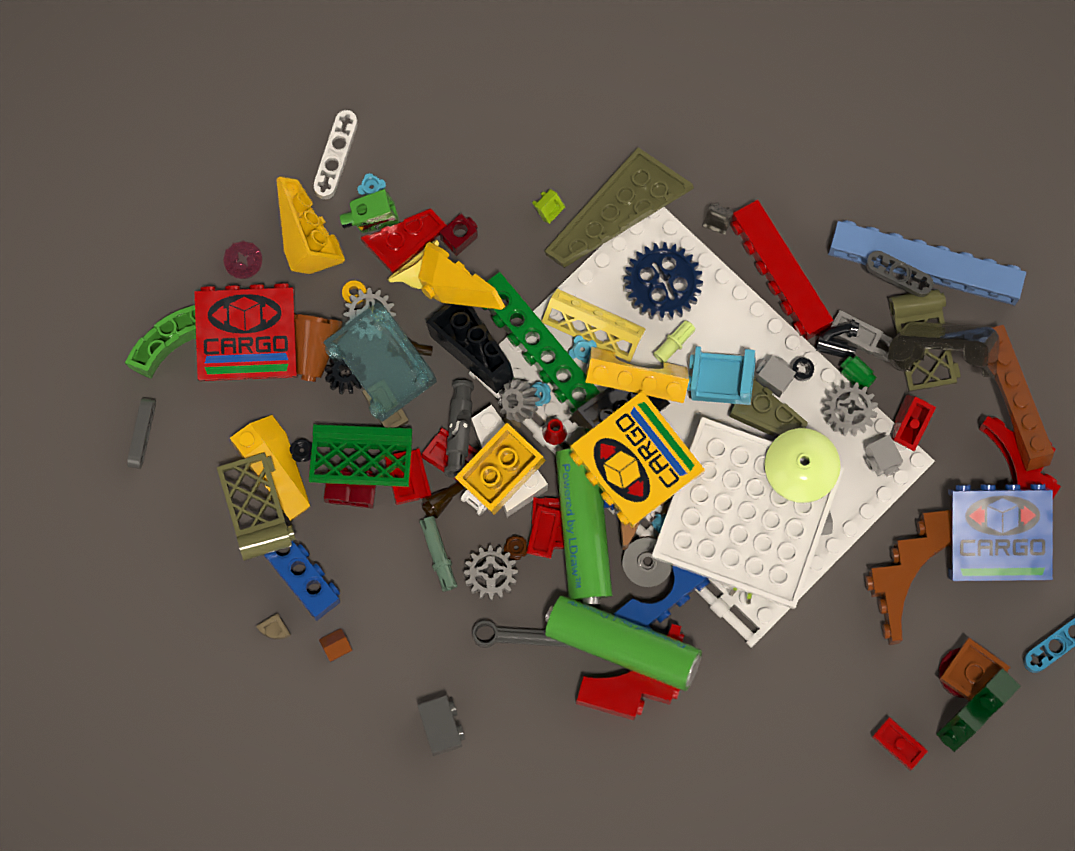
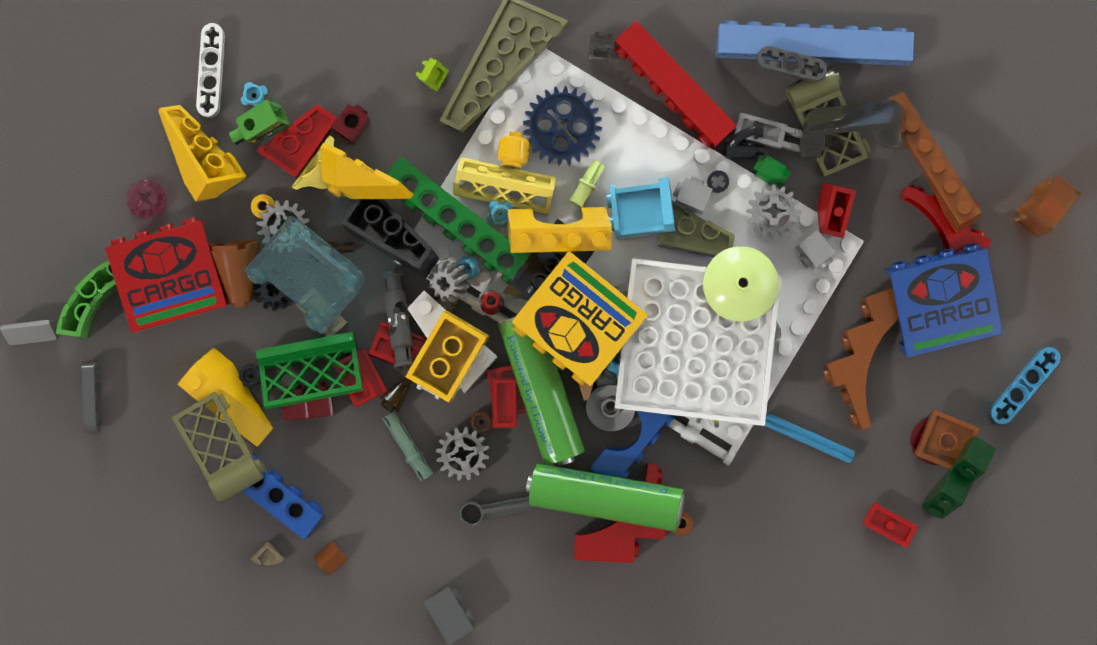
camera: 15 degrees left, 10 degrees up
(98, 358) = (29, 332): none -> light grey slope
(610, 293) = (513, 150): none -> yellow head
(691, 701) = (688, 527): none -> dark orange plate
(837, 639) = (809, 438): none -> dark azure axle

